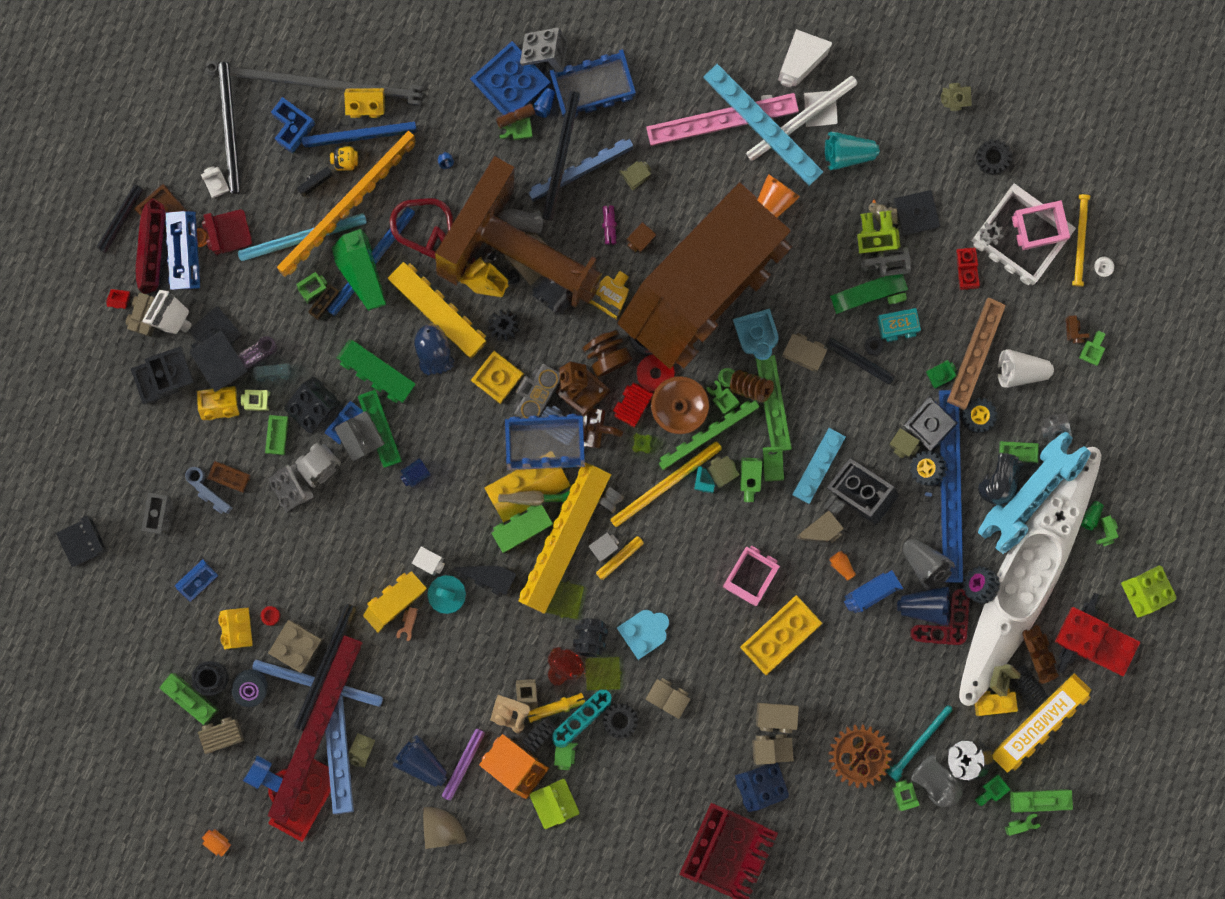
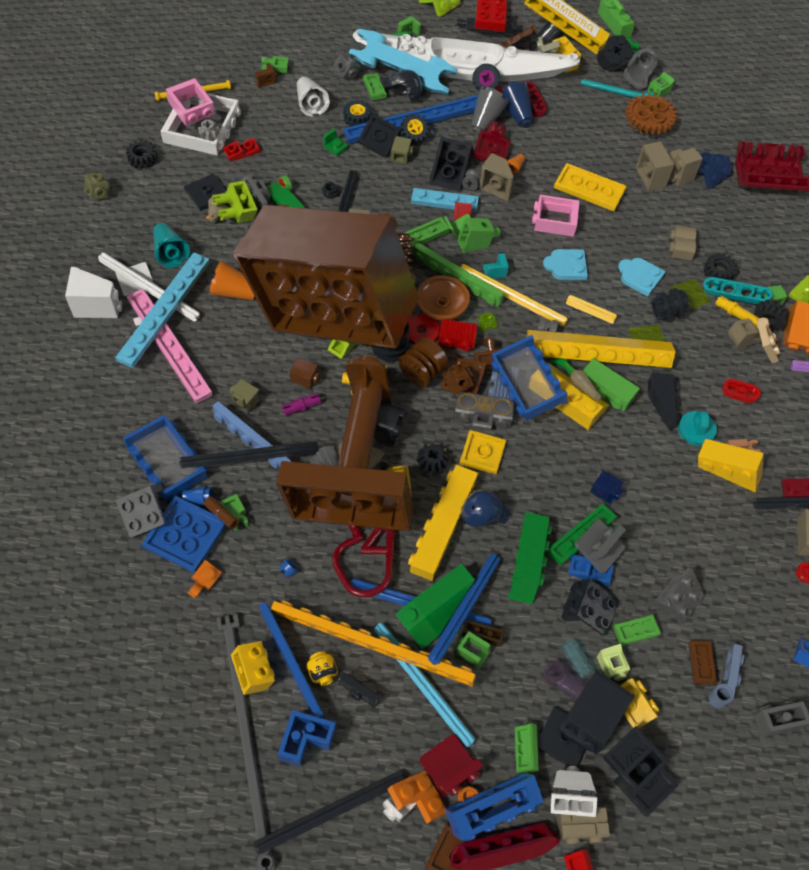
camera: 115 degrees left, 25 degrees down
(217, 297) = (526, 748): none -> bright green plate
(218, 200) = (421, 791): none -> orange plate
(317, 464) = (648, 574): light grey brick -> none
(346, 291) = (463, 610): none -> blue axle
(428, 561) = (682, 444): white brick -> none
(462, 86) = (204, 577): none -> orange plate
(469, 659) = (740, 391): none -> red plate
(565, 664) = (703, 315): clear red tile -> none
(604, 546) = (590, 318): light grey brick -> none
(685, 559) = (567, 264): none -> medium azure plate
(722, 471) = (483, 255): olive brick -> none
(723, 399) = (422, 272): bright green plate -> none
(792, 476) = (461, 209): none -> red plate
(872, 592) = (532, 123): blue window -> none
(876, 549) = (491, 142): none -> dark red plate
(899, 324) = (306, 177): teal brick -> none
(976, 353) = (309, 123): medium nougat plate -> none
(1017, 827) = (641, 25): bright green plate -> none
(1104, 266) = (209, 73): white tile -> none

